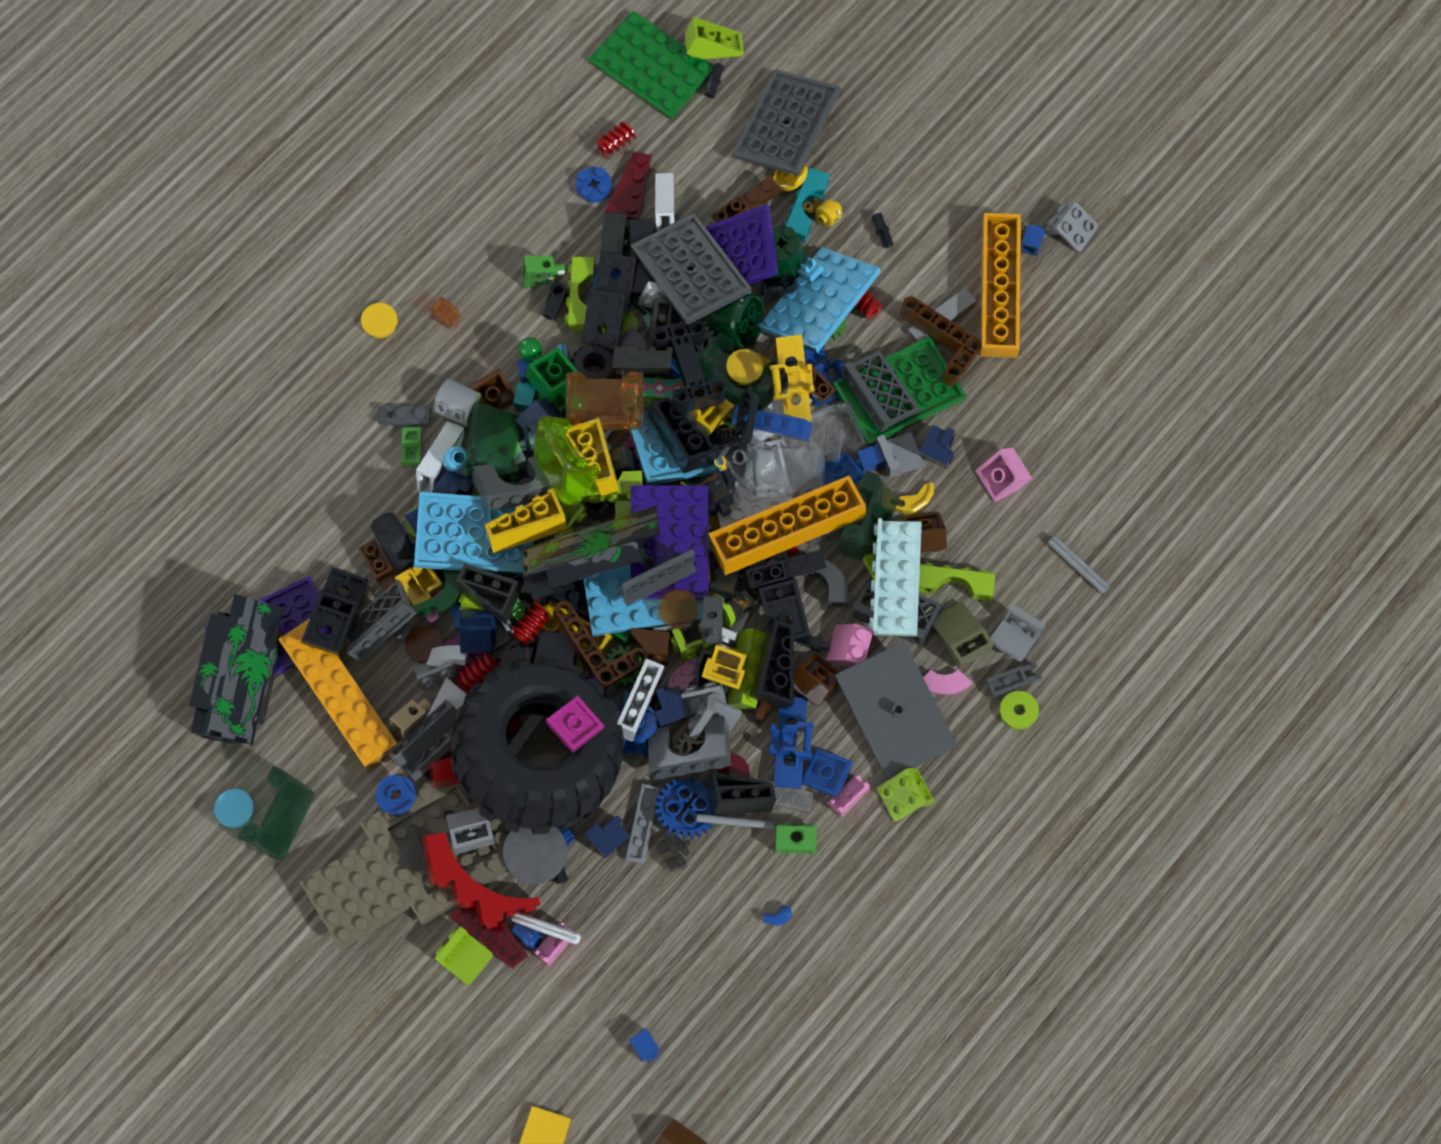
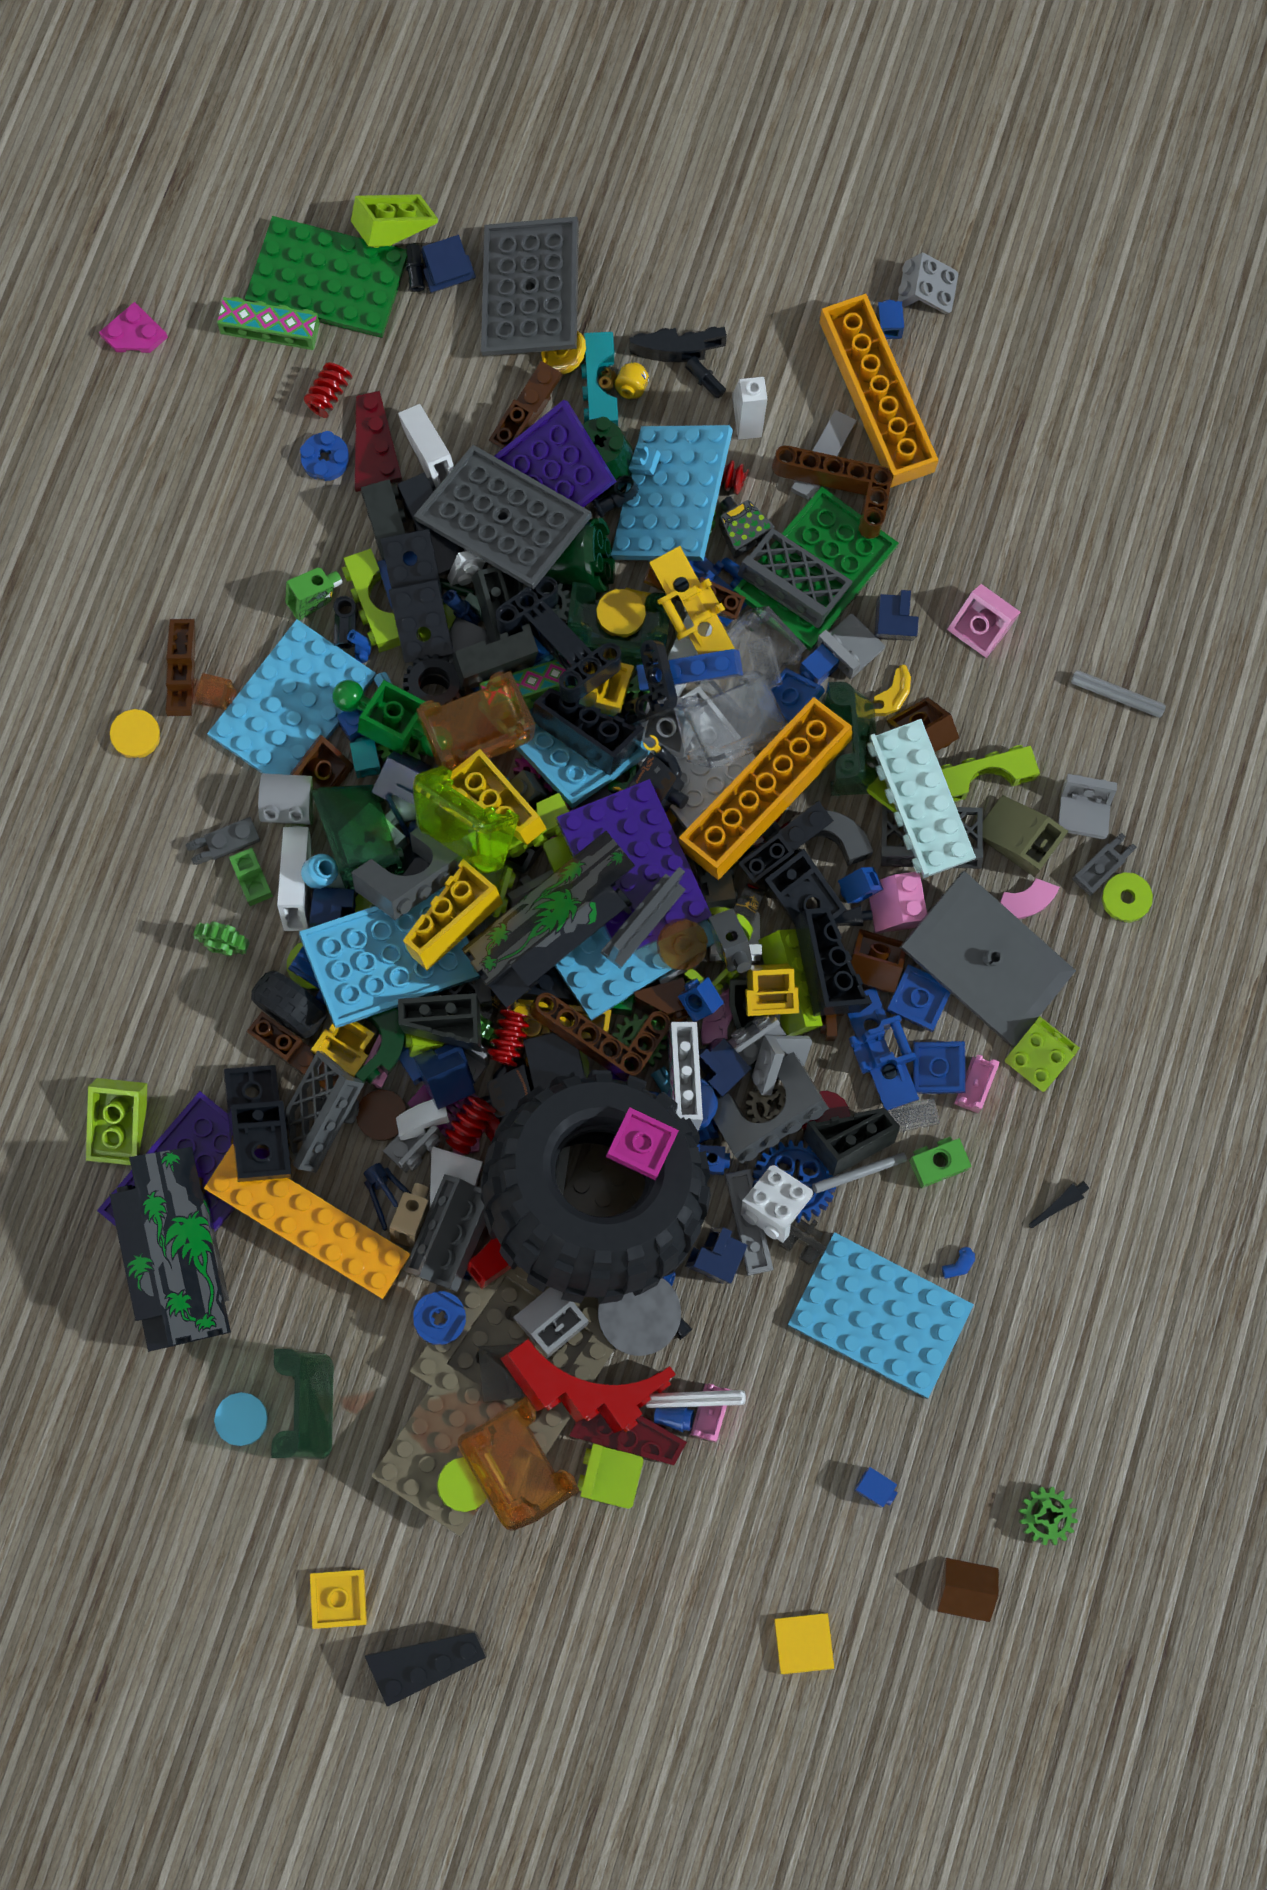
camera: 30 degrees left, 5 degrees up
(242, 958) = (338, 1599): none -> yellow tile
(245, 570) = (115, 1120): none -> lime slope
(271, 1027) = (417, 1666): none -> black wedge
(358, 914) = (459, 1487): none -> lime tile
(370, 479) = (221, 938): none -> bright green gear
(397, 915) = (514, 1467): none -> clear orange windscreen
(401, 685) = (378, 1178): none -> dark blue plant
(430, 288) = (180, 667): none -> reddish brown slope
(491, 338) = (288, 701): none -> medium azure plate
(503, 53) = (133, 331): none -> dark pink plate
(558, 322) = (362, 645): none -> blue arm
(596, 80) = (268, 323): none -> bright green brick
(627, 771) = (723, 1158): none -> blue brick
(637, 321) = (460, 607): none -> dark blue axle
(664, 815) = (775, 1202): none -> white bracket
(673, 650) = (700, 998): none -> blue brick
(705, 928) = (880, 1315): none -> medium azure plate
(736, 86) = (446, 264): none -> dark blue plate
(760, 1111) = (1050, 1528): none -> bright green gear
(828, 622) = (860, 885): none -> blue brick
(834, 719) = (919, 998): none -> blue plate
(860, 341) = (742, 525): none -> dark grey torso
(865, 199) = (669, 347): none -> black slope
(877, 903) = (1070, 1196): none -> black piece
(900, 261) = (749, 407): none -> white slope

